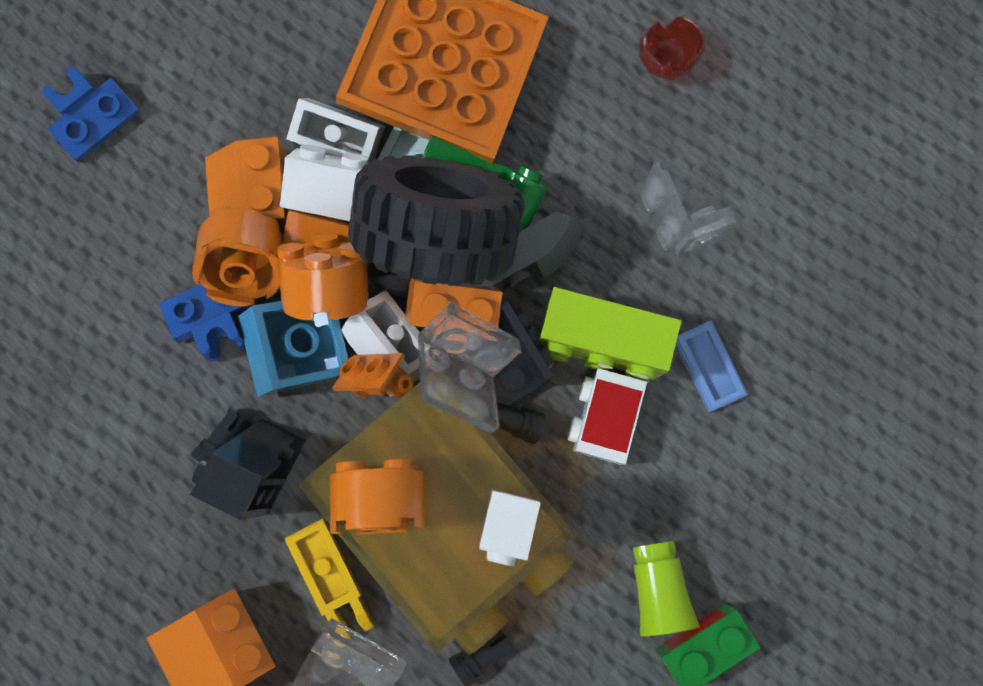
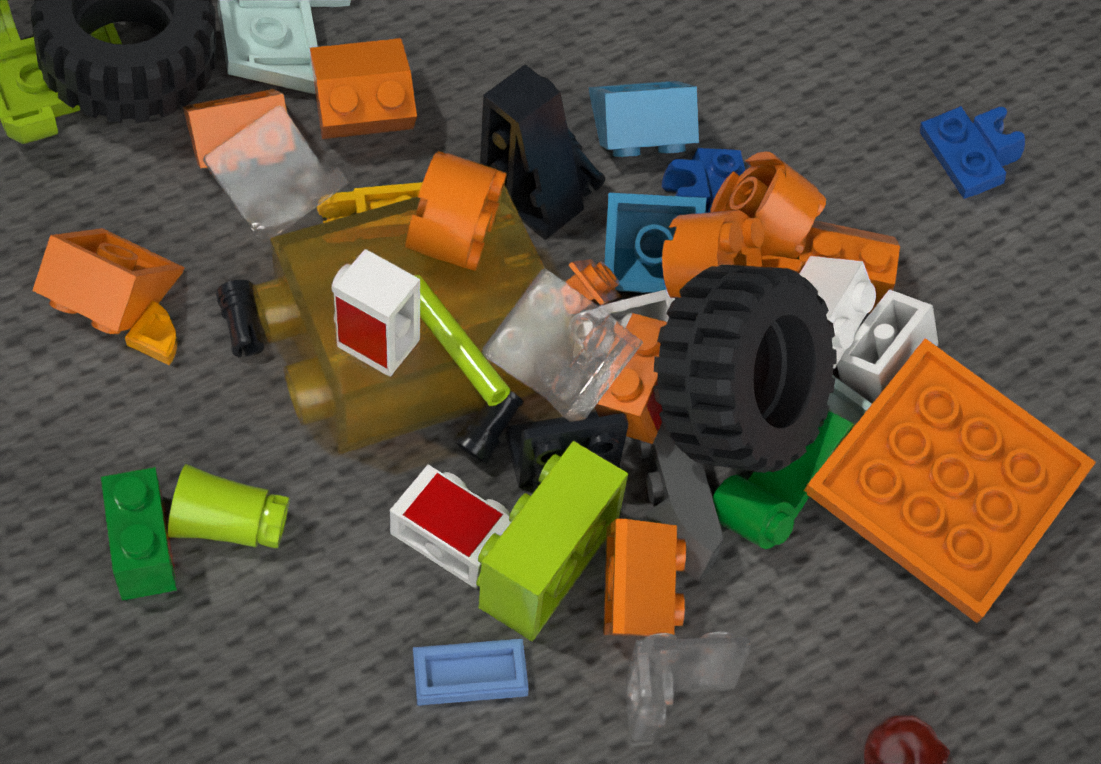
camera: 105 degrees right, 25 degrees down
(147, 395) = (645, 116): none -> dark azure slope
(488, 459) = (461, 347): none -> lime piece
(616, 259) = (642, 578): none -> orange slope

